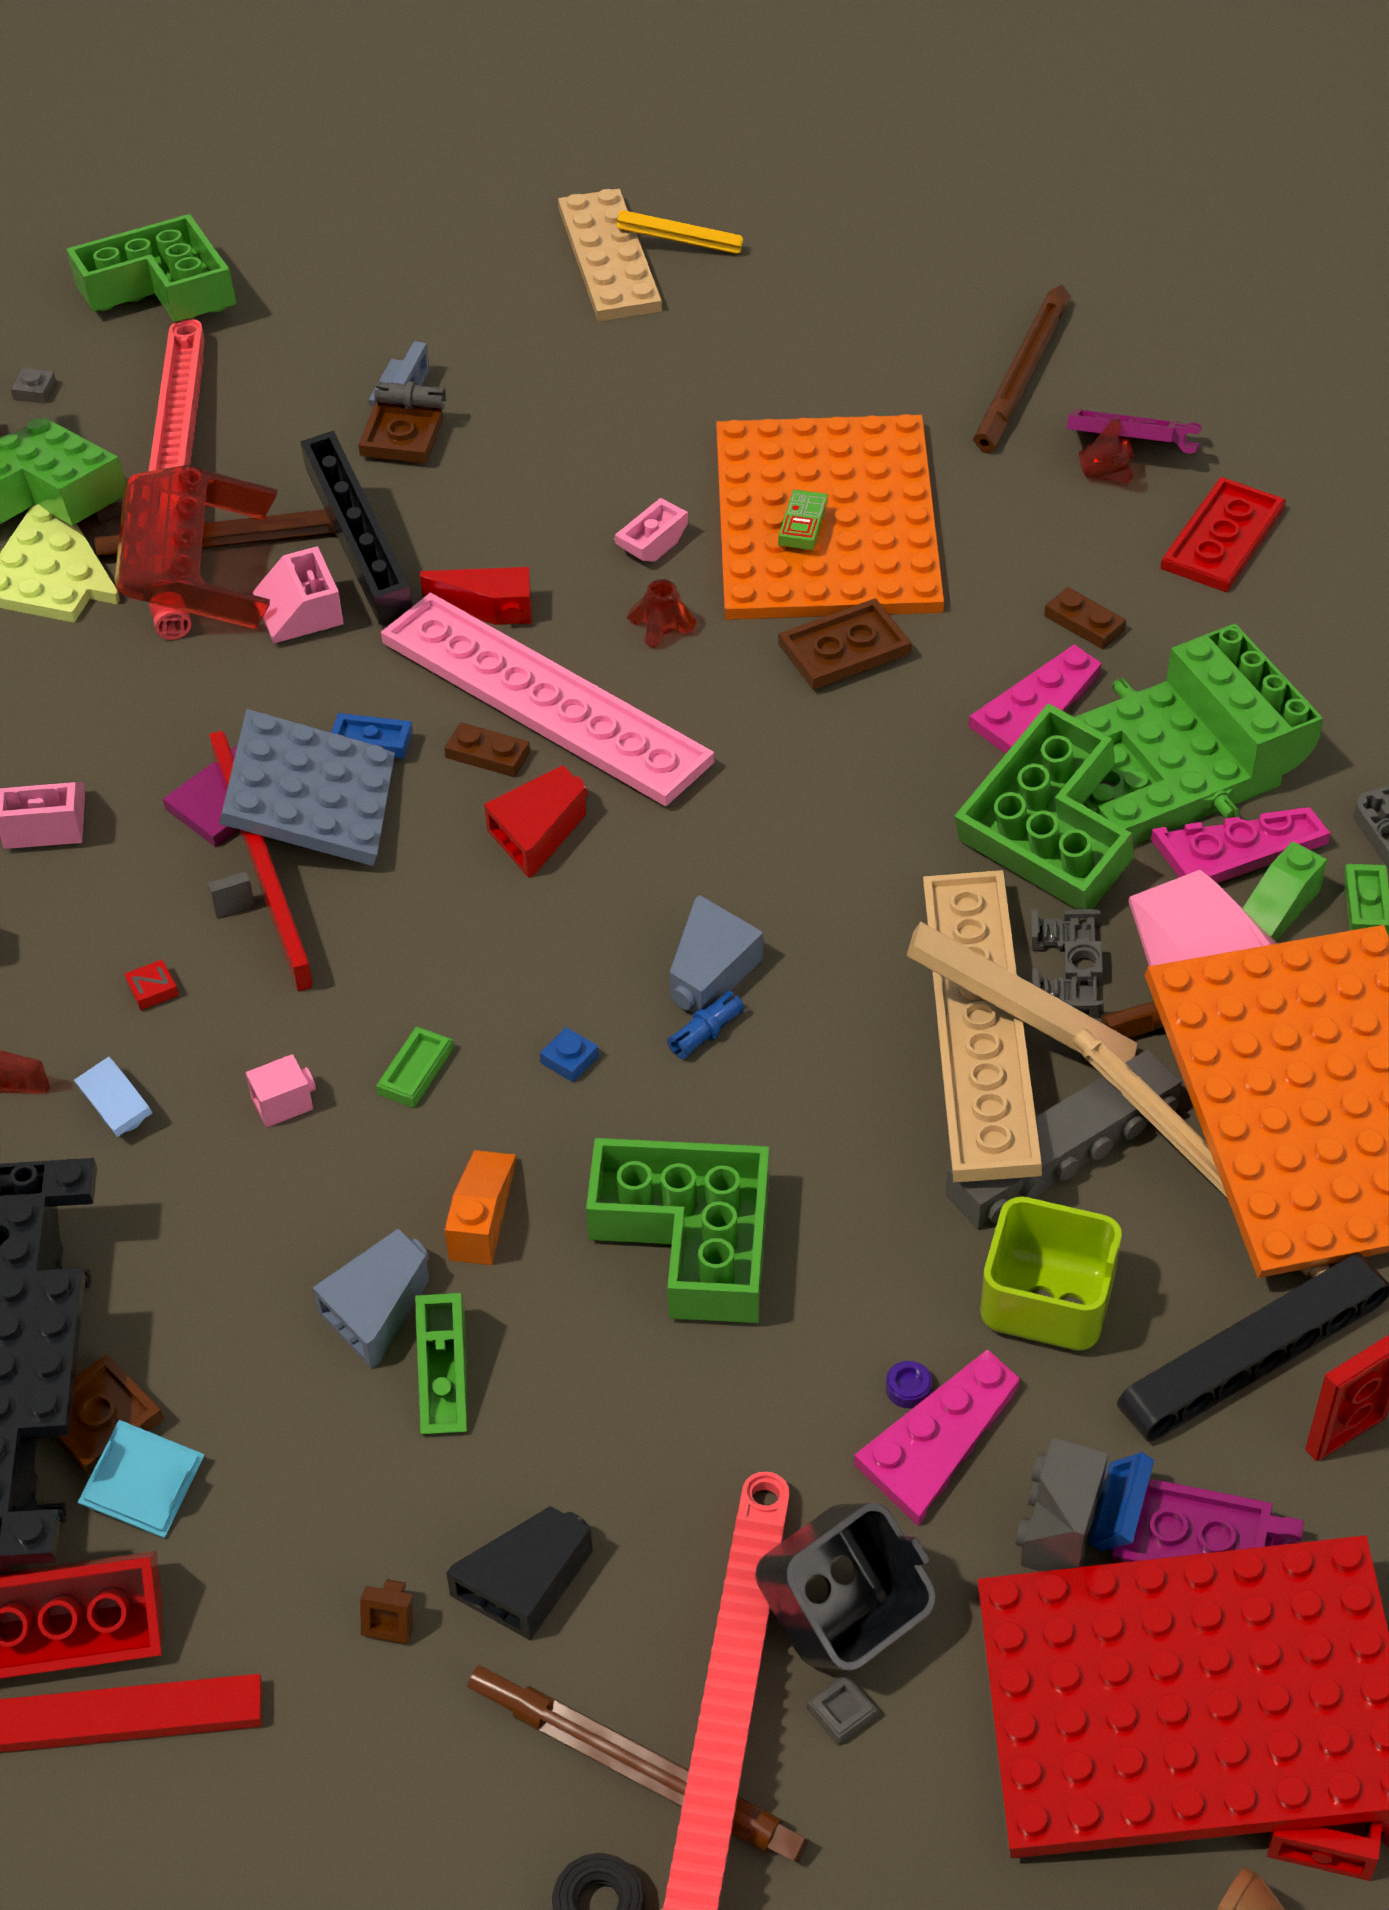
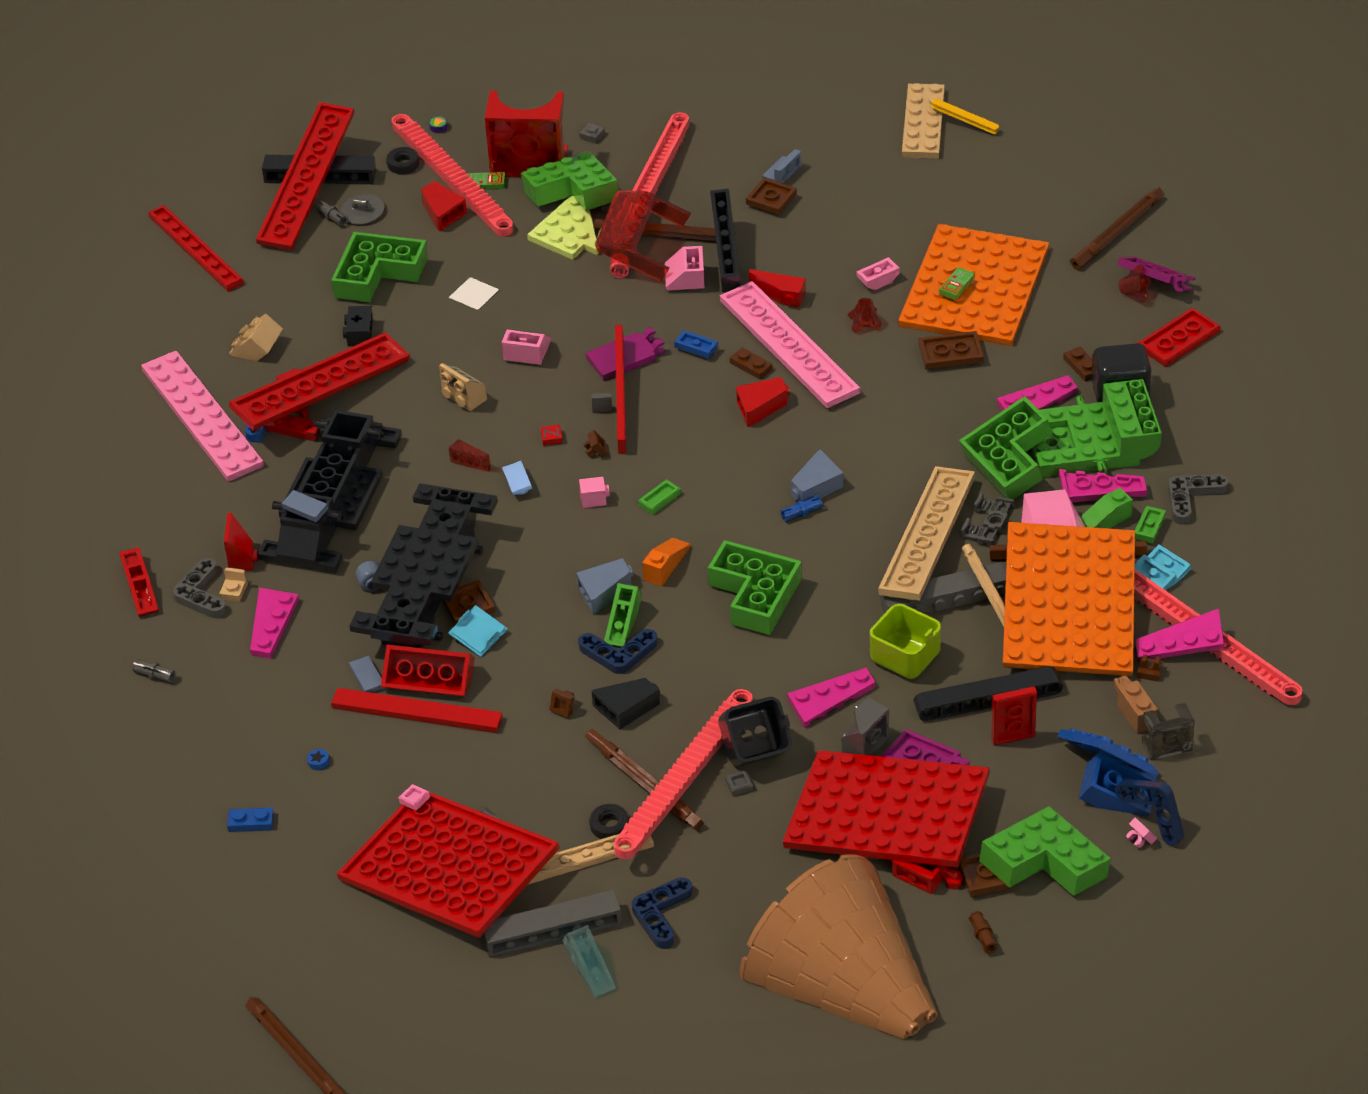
camera: 20 degrees right, 5 degrees down
(157, 259) = (675, 77): bright green brick -> none
(252, 986) = (595, 445): none -> reddish brown tile
(308, 787) = (654, 360): sand blue plate -> none
(410, 395) = (781, 177): dark grey pin -> none
(468, 1457) = (622, 657): none -> dark blue beam
(569, 1054) = (732, 507): blue plate -> none
(908, 1384) = (825, 672): dark purple tile -> none
(1010, 991) = (943, 521): tan tile -> none
(1121, 1502) = (894, 735): blue tile -> none
(1174, 610) = (1118, 365): none -> black piece

